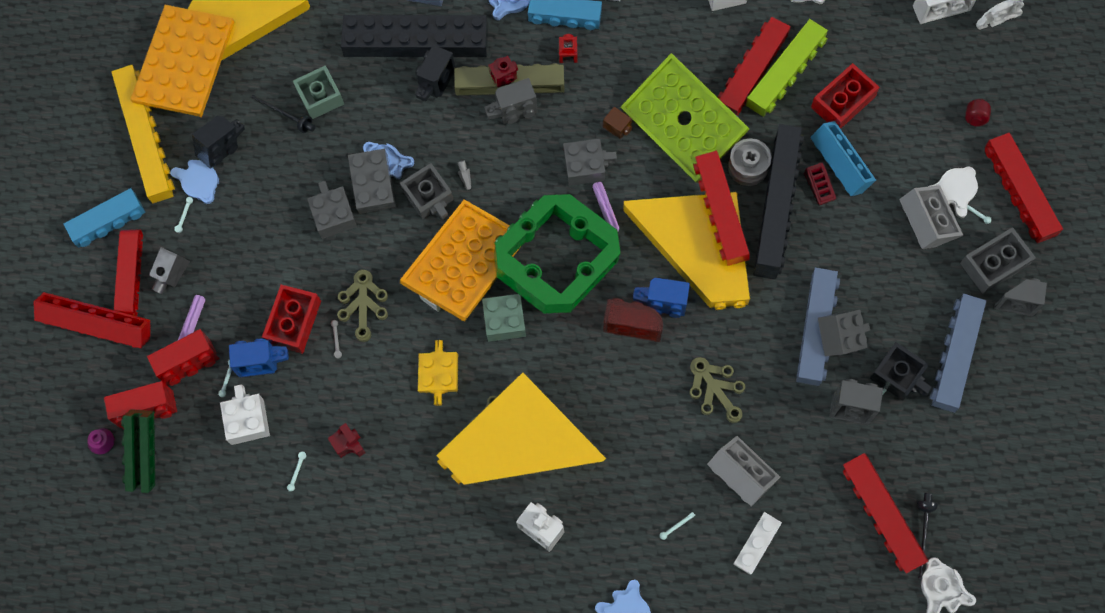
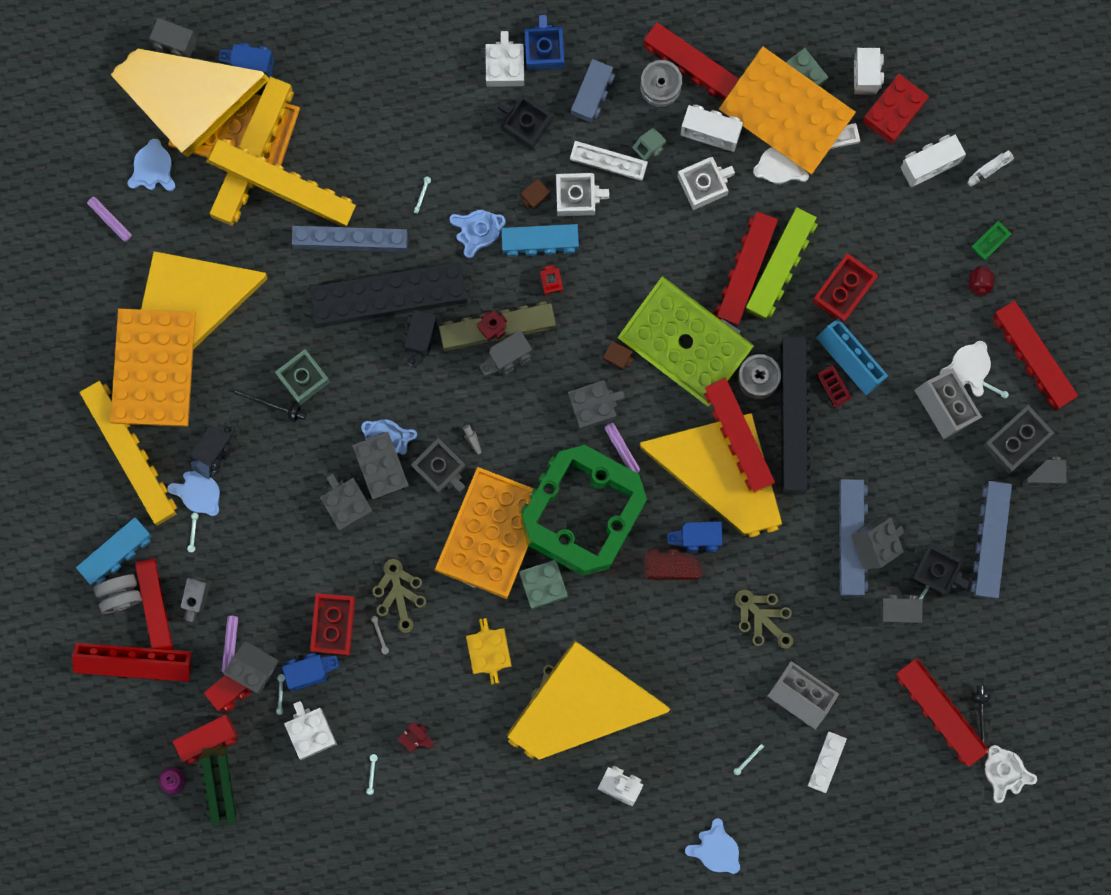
camera: 15 degrees left, 10 degrees up
(94, 253) = (117, 594): none -> light grey wheel
(197, 338) = (251, 667): none -> dark grey slope
(991, 79) = (991, 240): none -> green plate

